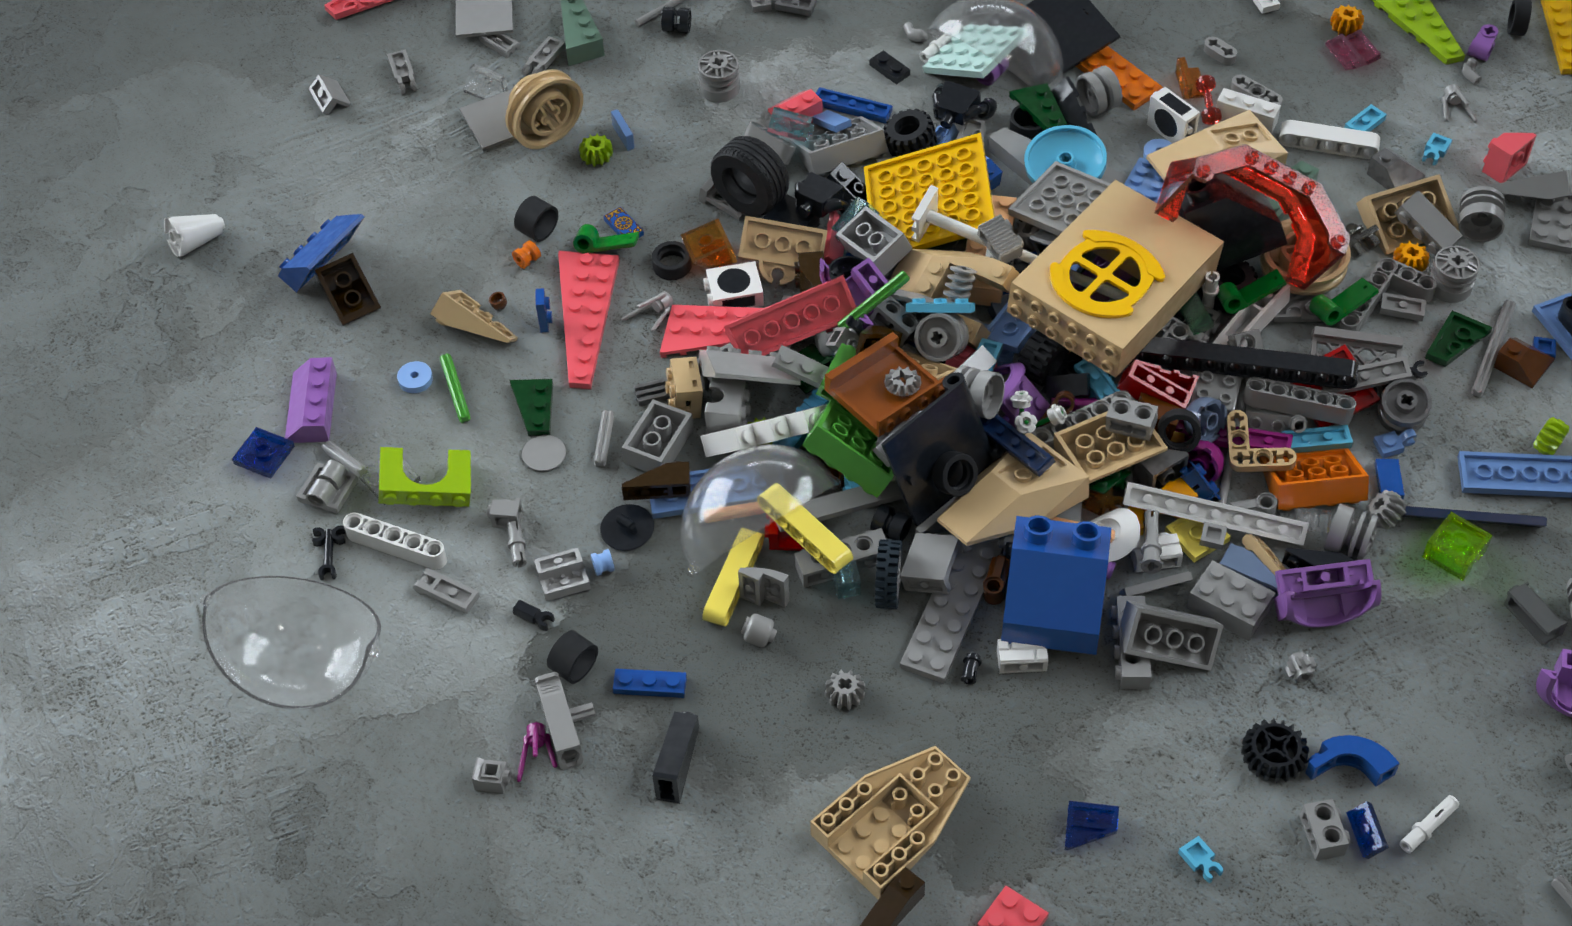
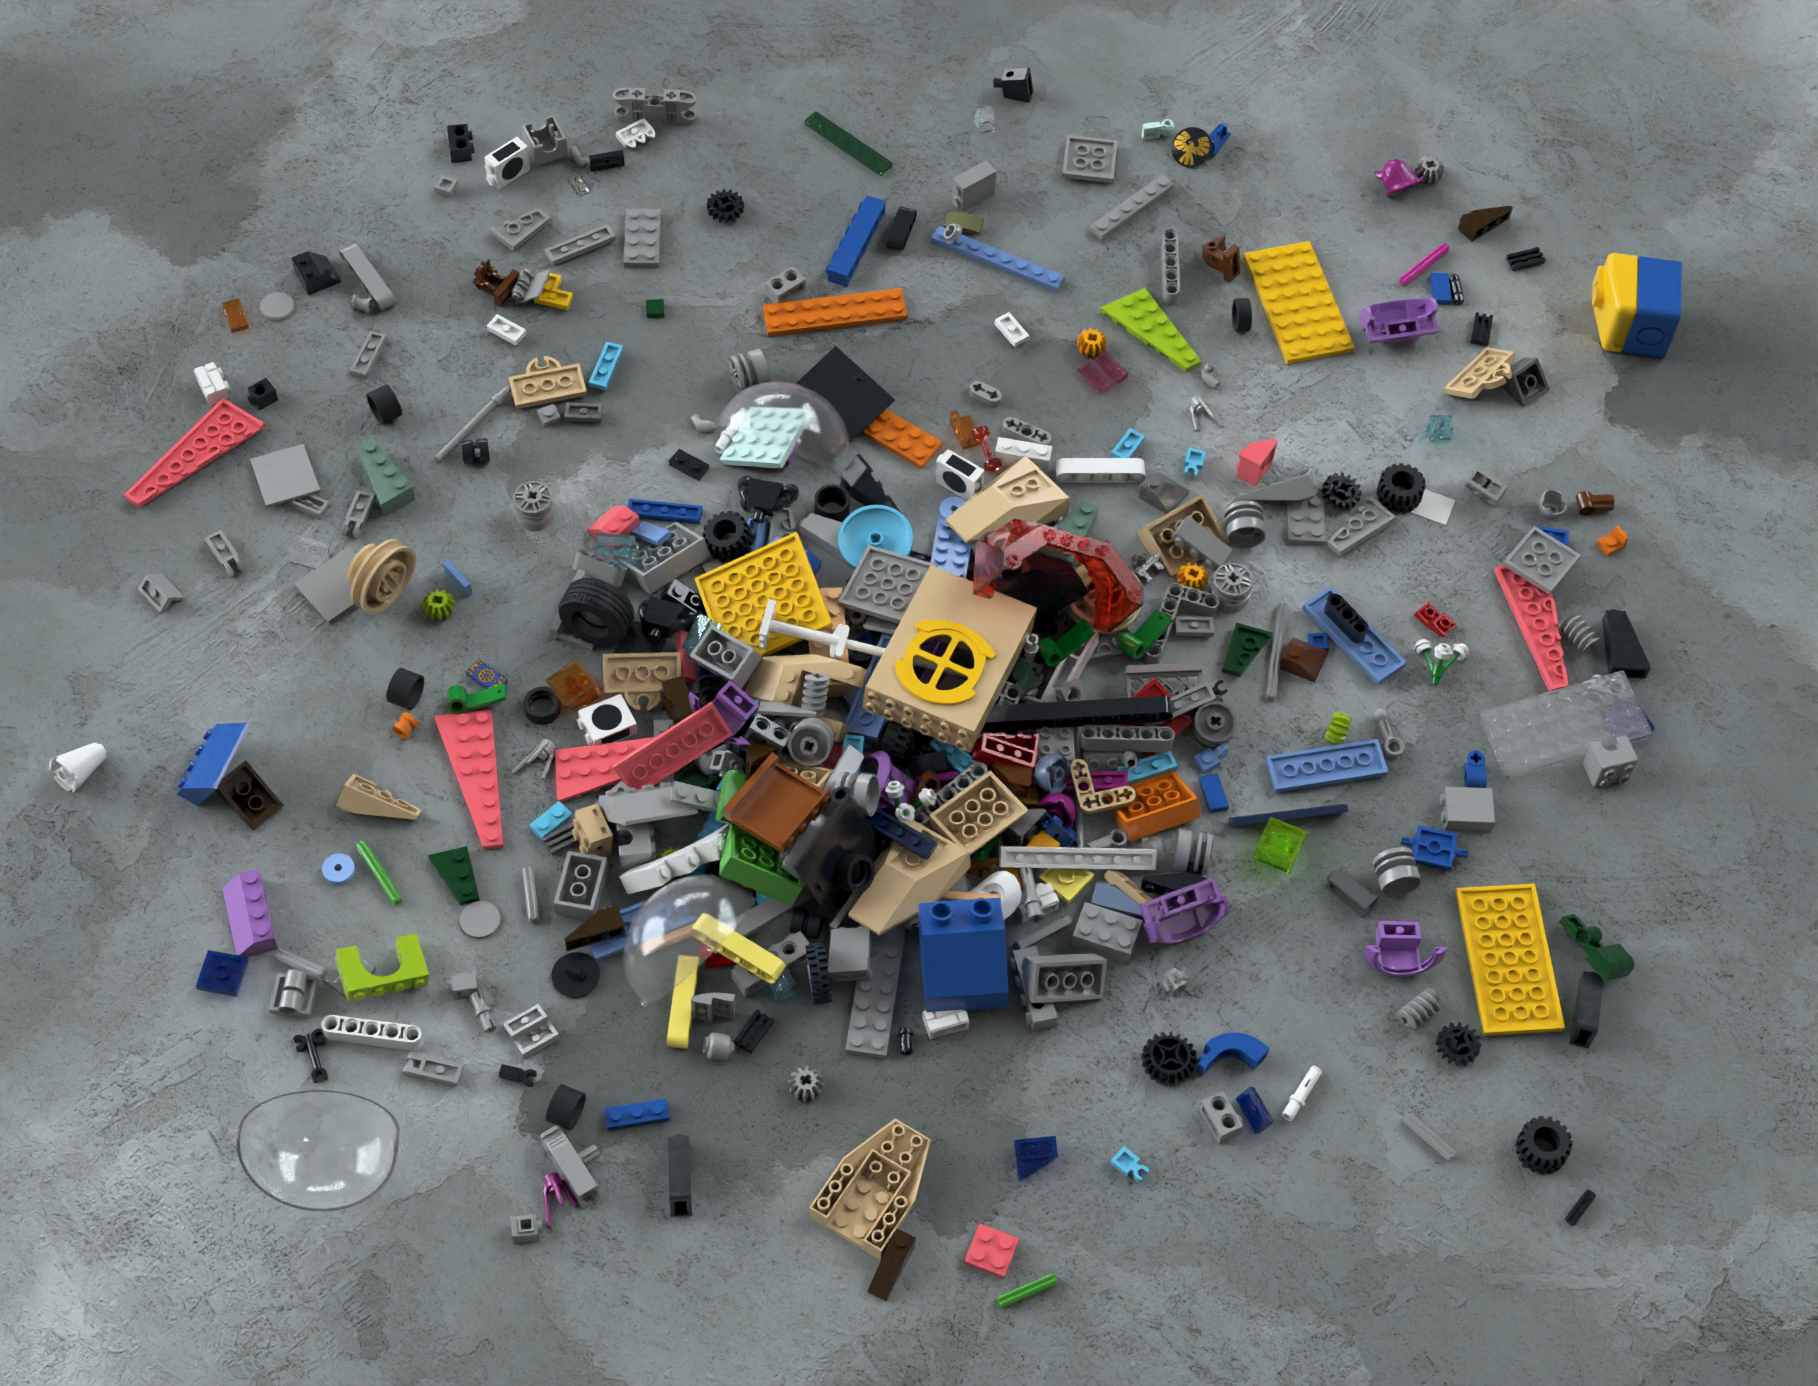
camera: 20 degrees left, 5 degrees up
(495, 301) = (389, 777): reddish brown hinge -> none
(542, 308) = (441, 781): blue plate -> none
(602, 562) = (564, 1013): light blue wheel -> none
(646, 371) = (551, 820): none -> medium azure plate
(796, 619) = (763, 1017): none -> black tile
(875, 299) = (744, 720): bright green axle -> none
(897, 387) = (787, 803): light grey gear -> none
(940, 305) = (805, 715): medium azure plate -> none
(996, 579) = (908, 955): reddish brown piece -> none
(1000, 239) = (842, 639): light grey brick -> none
(1040, 104) = (840, 486): dark green wing -> none
(1099, 90) = (887, 459): light grey wheel -> none
(1131, 418) = (992, 794): light grey brick -> none
(1180, 414) = (1031, 778): black tyre -> none
(1213, 535) = (1081, 878): light grey plate -> none
(1388, 507) = (1217, 823): light grey gear -> none
(1483, 43) = (1215, 346): medium lavender piece -> none

